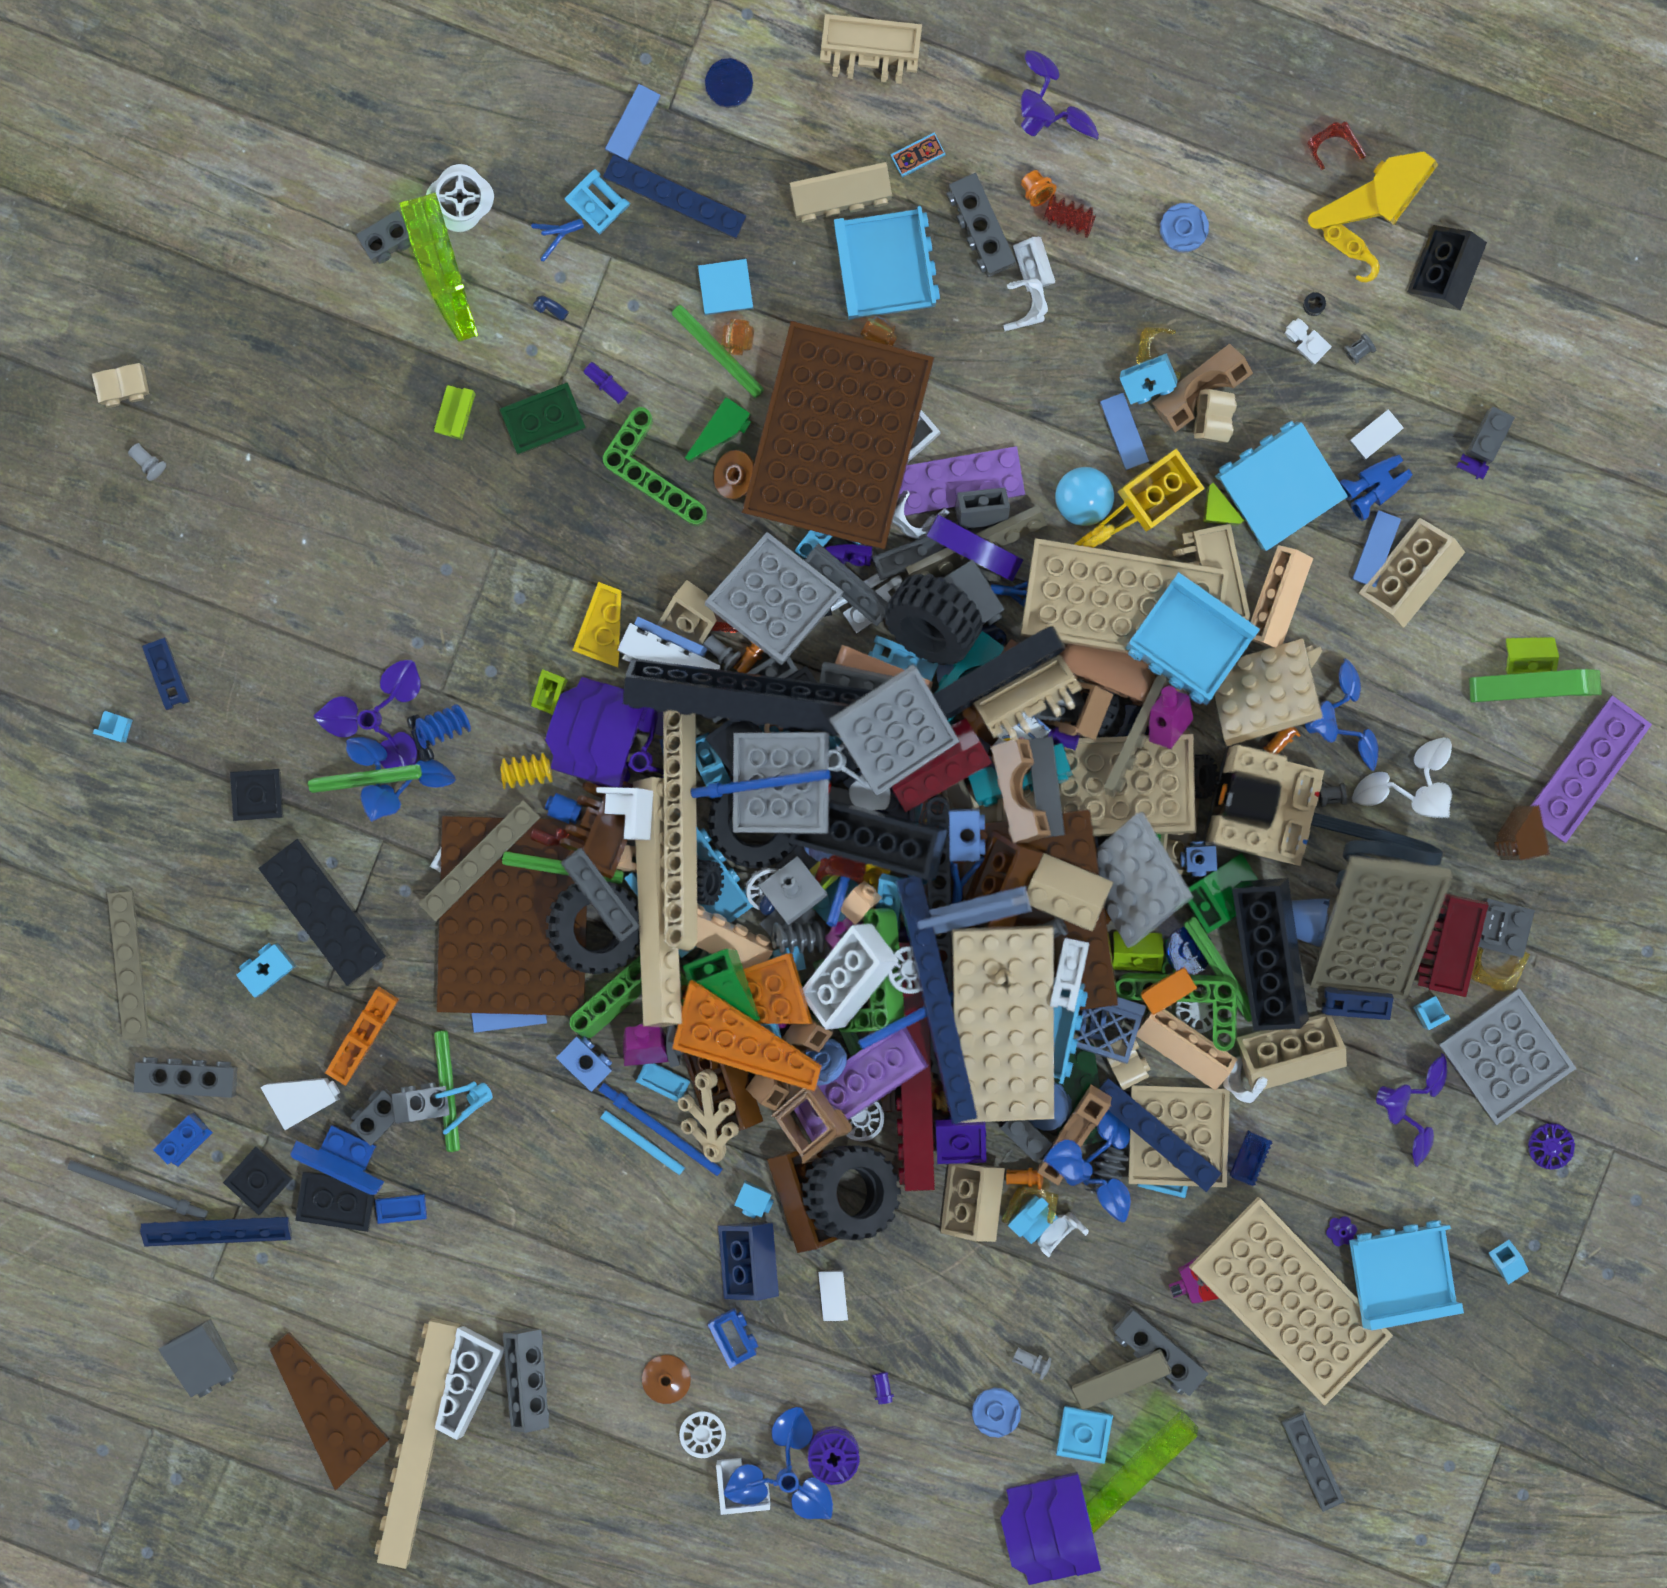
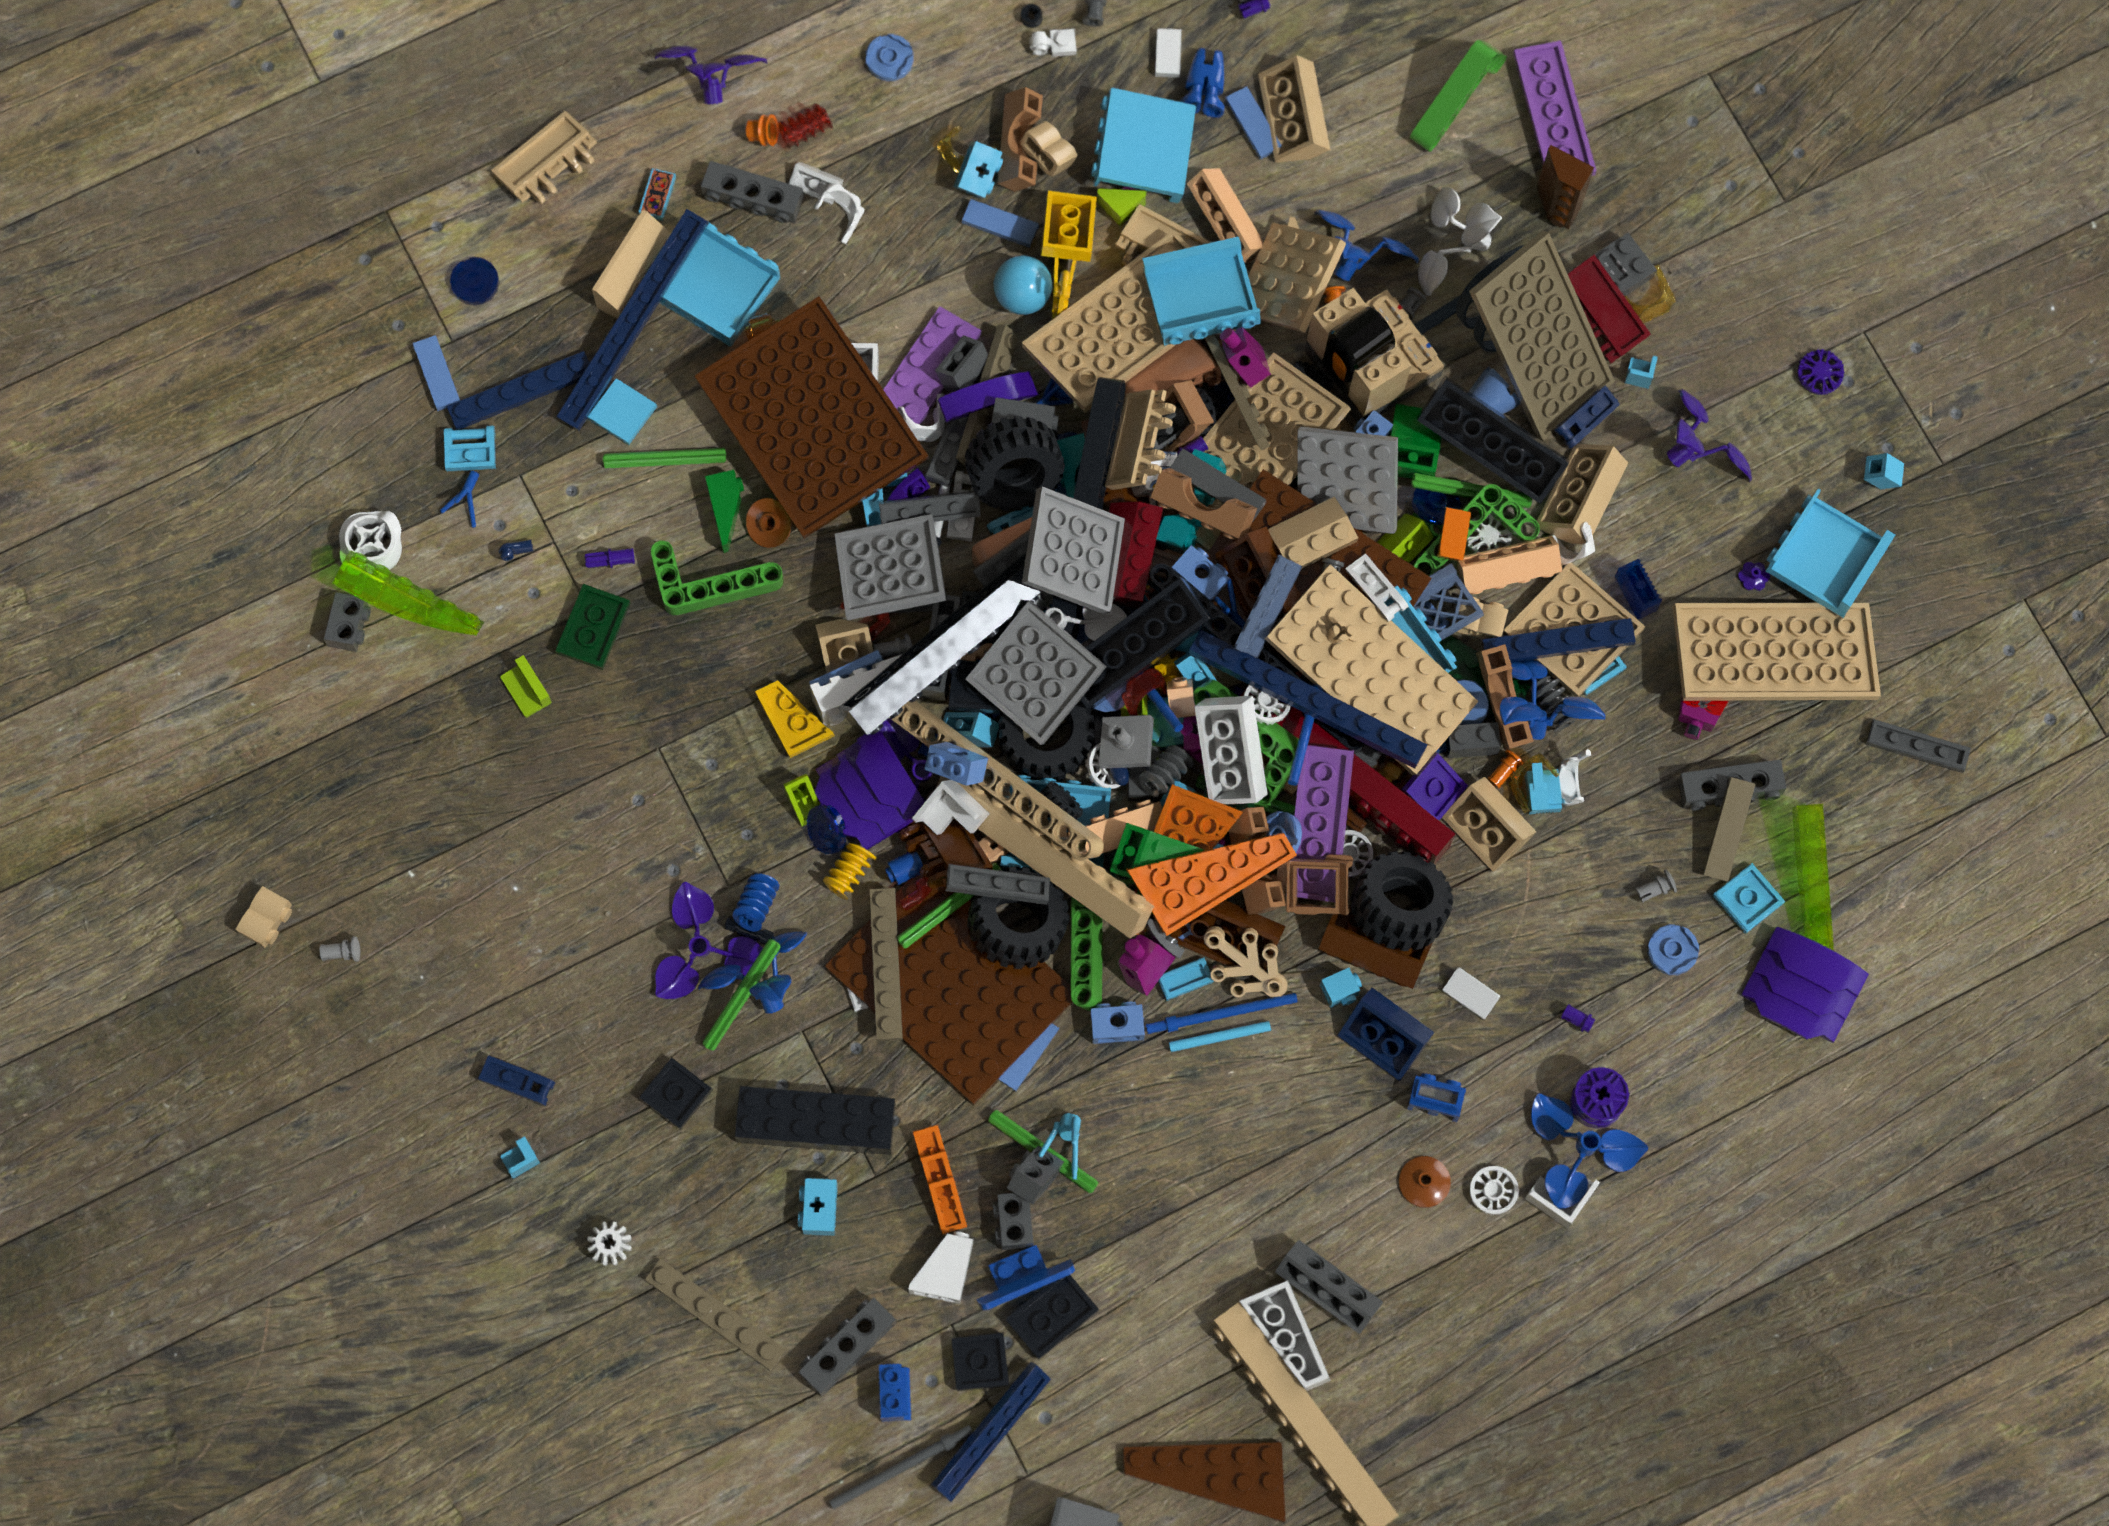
camera: 50 degrees left, 15 degrees down
(117, 850) = (600, 1248): none -> white gear
(401, 1208) = (1104, 1270): blue tile -> none
(539, 728) = (826, 829): none -> clear blue tile
(662, 785) = (956, 763): none -> medium blue brick
(717, 789) = (997, 729): blue bar -> none
(737, 336) = (668, 432): clear orange head -> none
(749, 658) = (916, 625): orange pin -> none
(798, 231) = (632, 319): none -> dark blue plate
(1507, 1056) = (1723, 345): light grey plate -> none
(1531, 655) = (1431, 80): lime panel -> none

